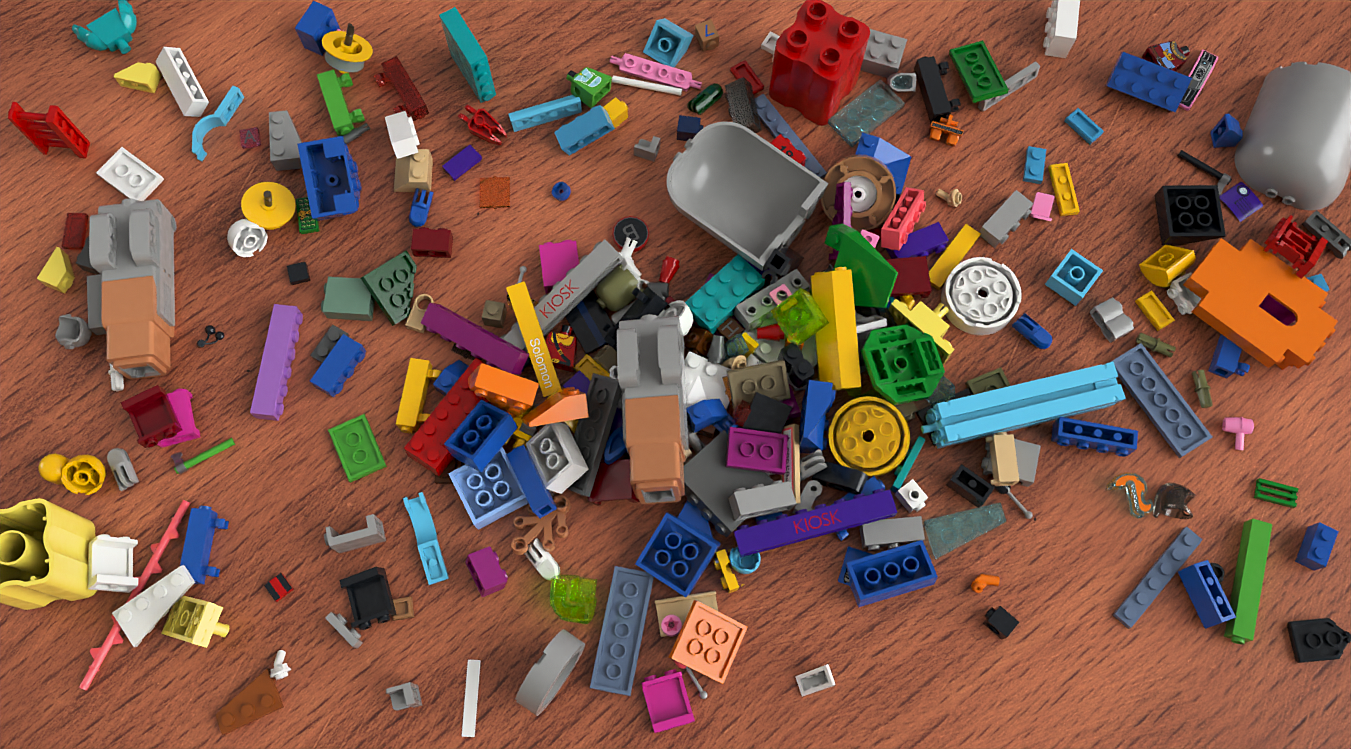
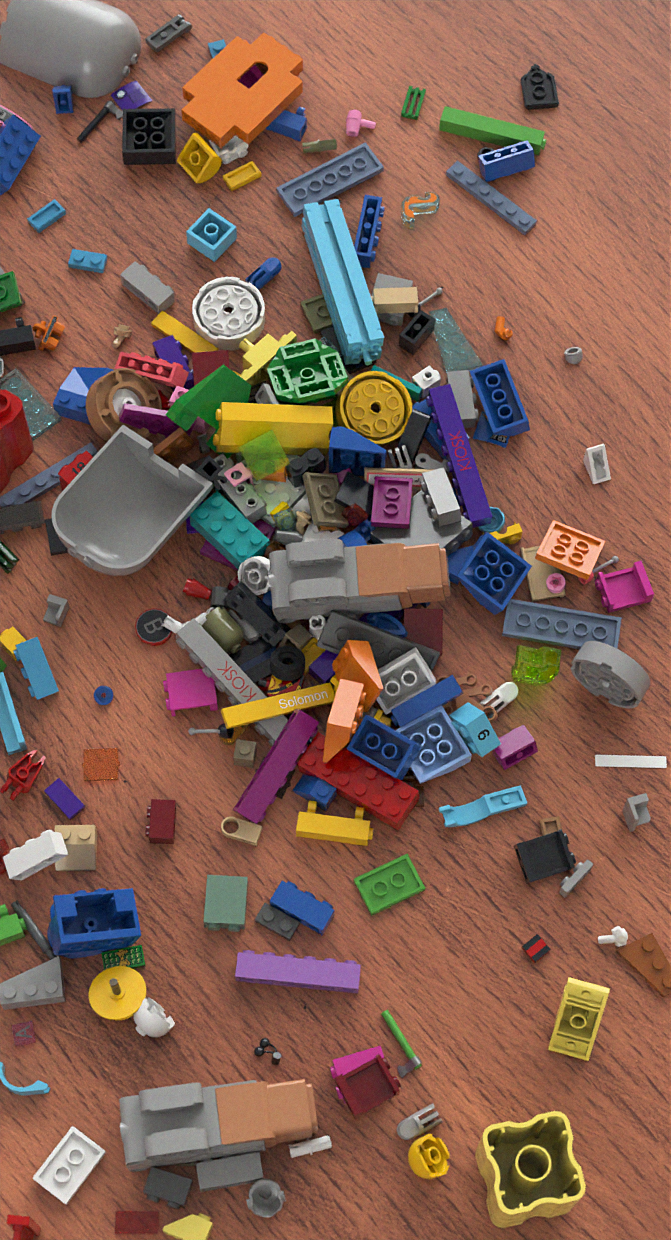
camera: 90 degrees left, 5 degrees down
(51, 467) = (422, 1193): yellow helmet -> none
(111, 564) = (523, 1108): white panel -> none
(146, 609) = (565, 1068): white wing -> none
(152, 568) = (558, 1093): coral plant -> none
(199, 543) = (498, 1031): blue brick -> none
(298, 273) = (193, 962): black tile -> none
(357, 539) = (481, 851): light grey panel -> none
(393, 286) = (214, 856): dark green plate -> none
(419, 210) = (119, 837): blue arm -> none
(500, 528) = (474, 729): none -> medium azure brick
(571, 354) = (287, 654): none -> black tyre
(688, 127) = (35, 569): dark blue brick -> none
(729, 328) = (266, 527): reddish brown tile -> none
(770, 332) = (270, 488): red cone -> none
(815, 241) = (174, 445): none -> dark orange plate
(953, 664) = (573, 358): none -> light grey piece
(1000, 622) = (537, 317): black brick -> none
(1042, 206) = (132, 254): bright pink bracket -> none
(1063, 189) = (114, 238): yellow tile -> none
(1112, 320) = (252, 209): light grey brick -> none
(1155, 344) = (276, 177): olive axle -> none
(1172, 501) = (423, 177): clear smoke piece -> none
(1295, 245) = (187, 55): red fence -> none
(1316, 546) = (461, 78): blue brick -> none

